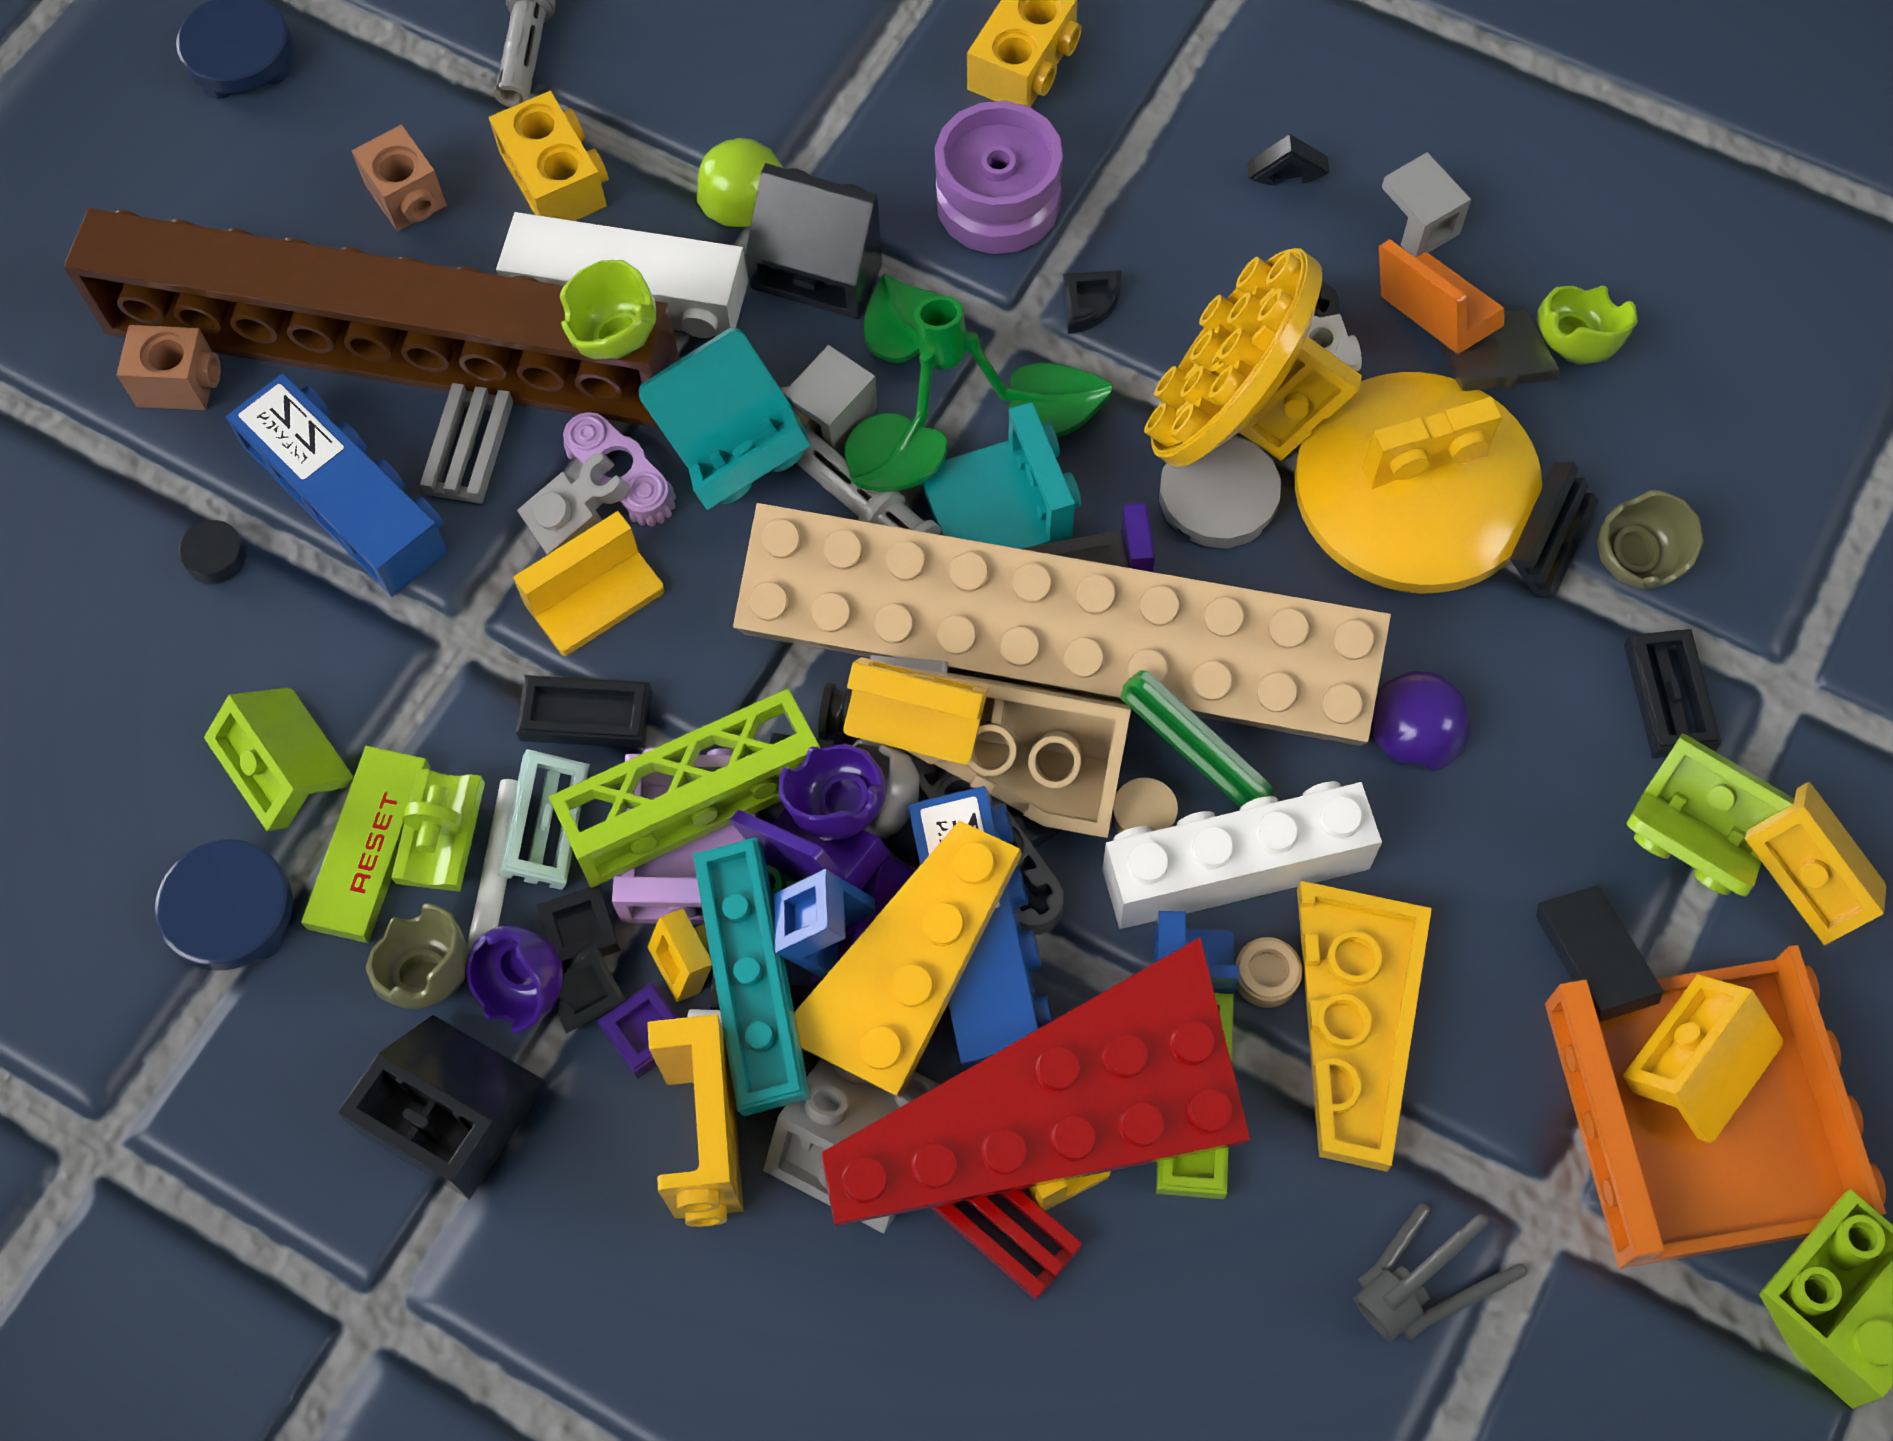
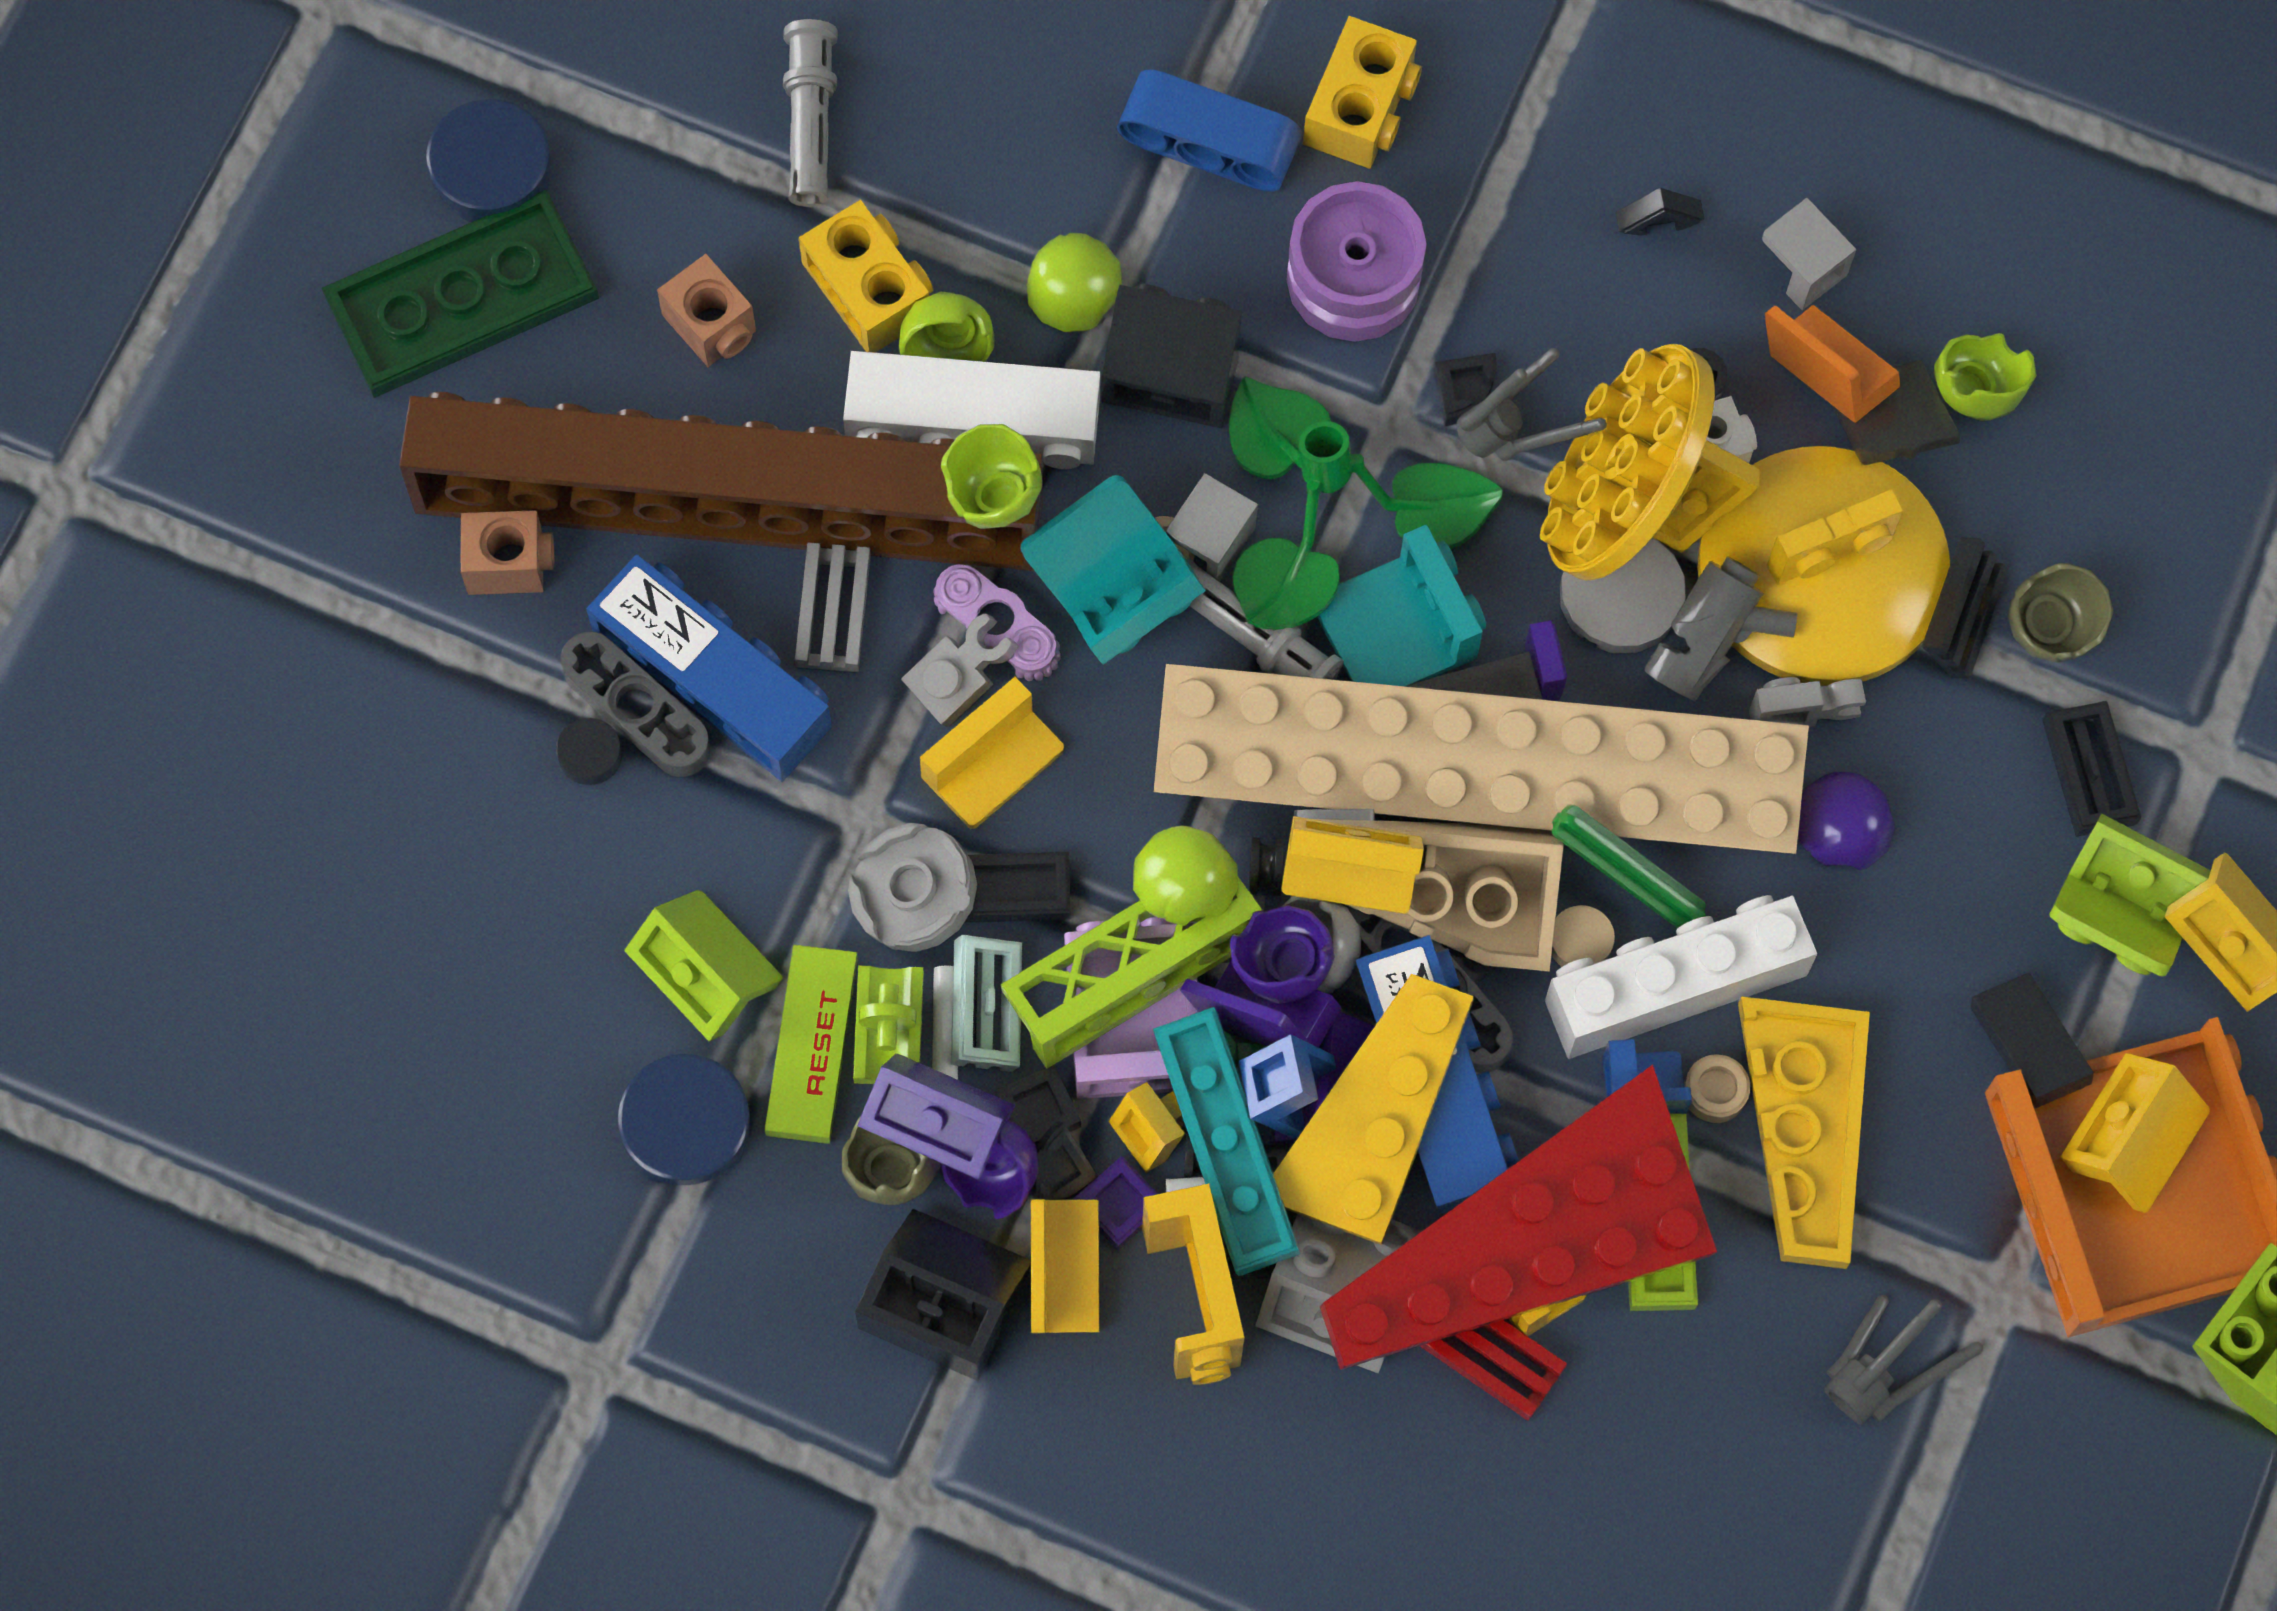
camera: 10 degrees left, 5 degrees up
(189, 150) = (460, 293): none -> dark green tile
(265, 537) = (591, 686): none -> dark grey beam
(456, 918) = (935, 1115): none -> panel
(491, 702) = (912, 887): none -> light grey tile
(569, 1088) = (1064, 1266): none -> yellow panel
(612, 201) = (947, 328): none -> lime hair
(746, 705) = (1184, 875): none -> lime hair
(882, 65) = (1209, 130): none -> blue beam
(1111, 326) = (1496, 420): none -> dark grey plant
(1303, 514) = (1713, 617): none -> dark grey piece
(1417, 605) = (1805, 703): none -> light grey plate

